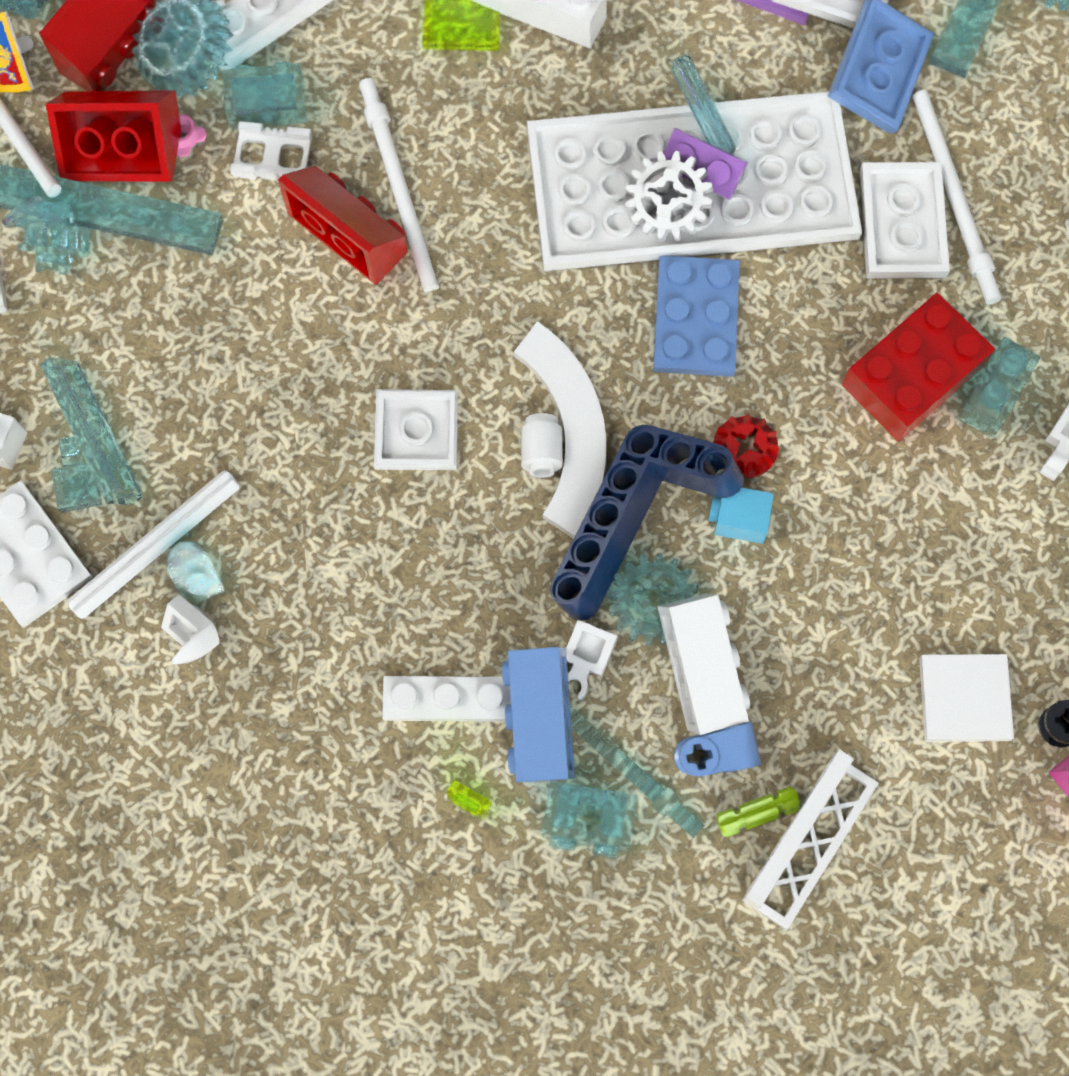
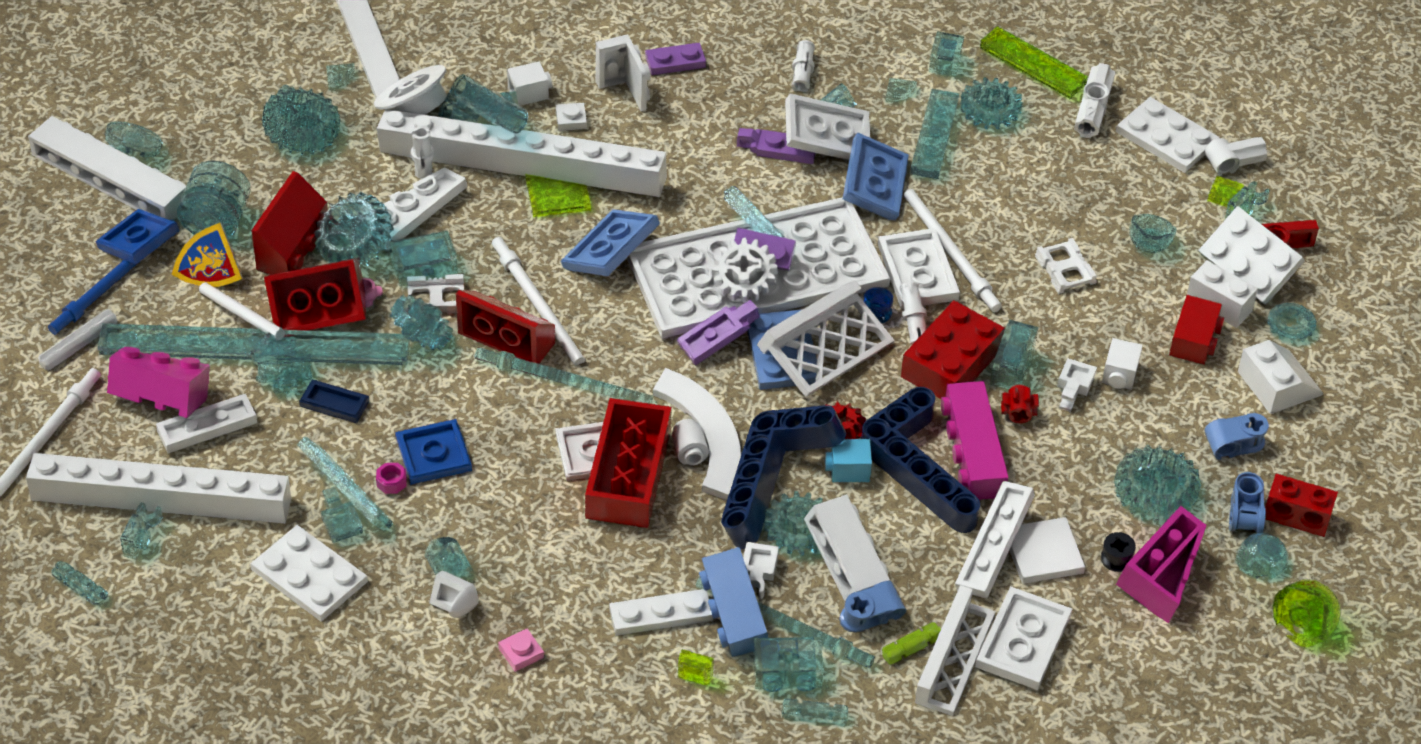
camera: 15 degrees left, 25 degrees down
(110, 295) = (334, 401): none -> dark blue tile
(153, 429) = (391, 478): none -> dark pink tile
(153, 544) = (409, 551): white axle -> none
(216, 395) = (433, 451): none -> blue tile
(237, 201) = (421, 322): none -> clear light blue gear
(258, 722) = (521, 650): none -> bright pink plate
(339, 273) = (508, 361): none -> clear light blue bar
(452, 468) = (628, 463): none -> red brick
(509, 112) = (610, 242): none -> medium blue tile
(609, 892) = (814, 711): none -> clear light blue axle
(615, 279) = (717, 331): none -> medium lavender hinge
(737, 289) = (807, 322): none -> white fence
(827, 531) = (911, 466): none -> dark blue beam
(840, 262) = (879, 302): none -> clear blue wheel
(880, 296) = (914, 312): none -> white pin
(904, 677) = (995, 538): none -> white plate
(906, 835) = (1023, 638): none -> white plate
(914, 515) = (974, 438): none -> dark pink brick
(988, 465) = (1019, 404): none -> red gear

